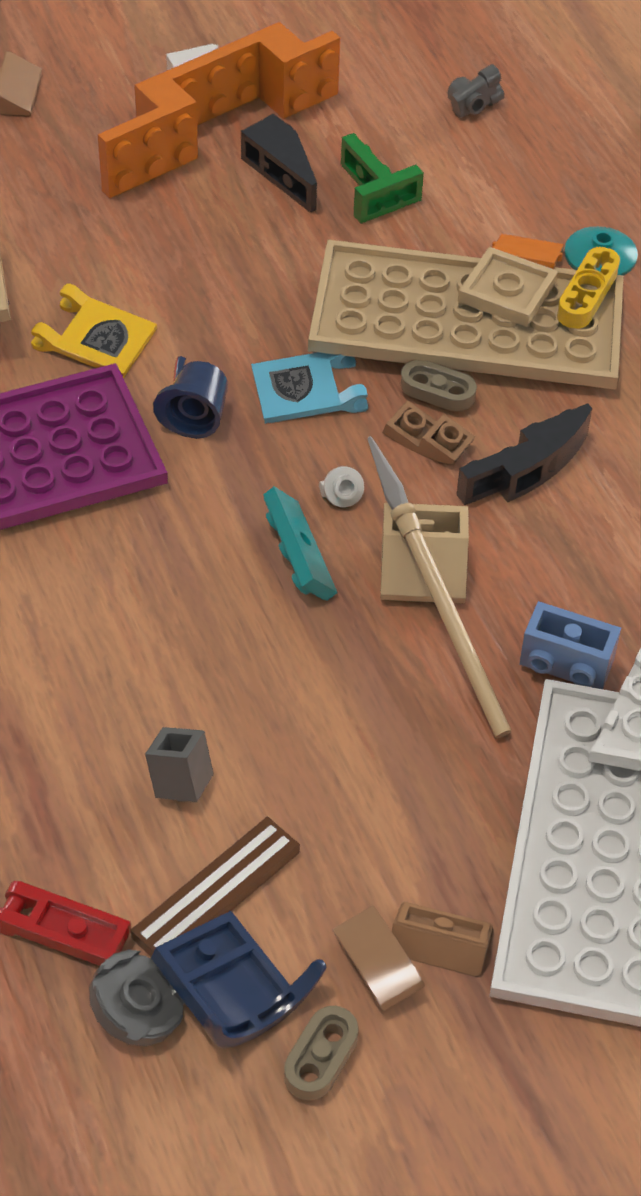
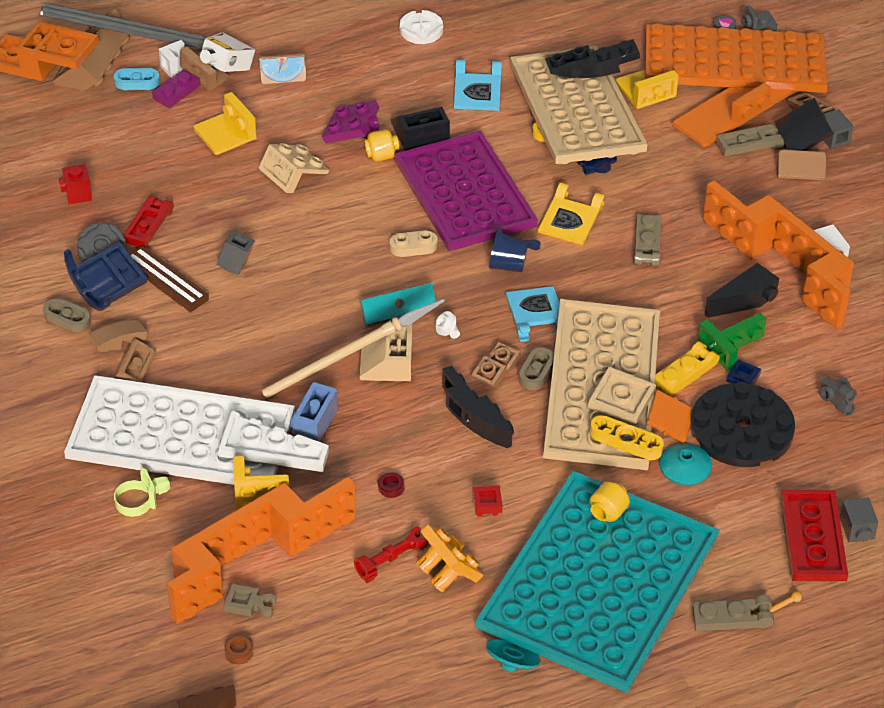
camera: 90 degrees right, 5 degrees down
(145, 528) = (413, 243): none -> tan plate
(160, 253) = (647, 240): none -> dark tan plate
(423, 230) = (686, 369): none -> yellow plate
(438, 181) = (743, 373): none -> clear blue tile
(561, 194) = (764, 438): none -> black plate

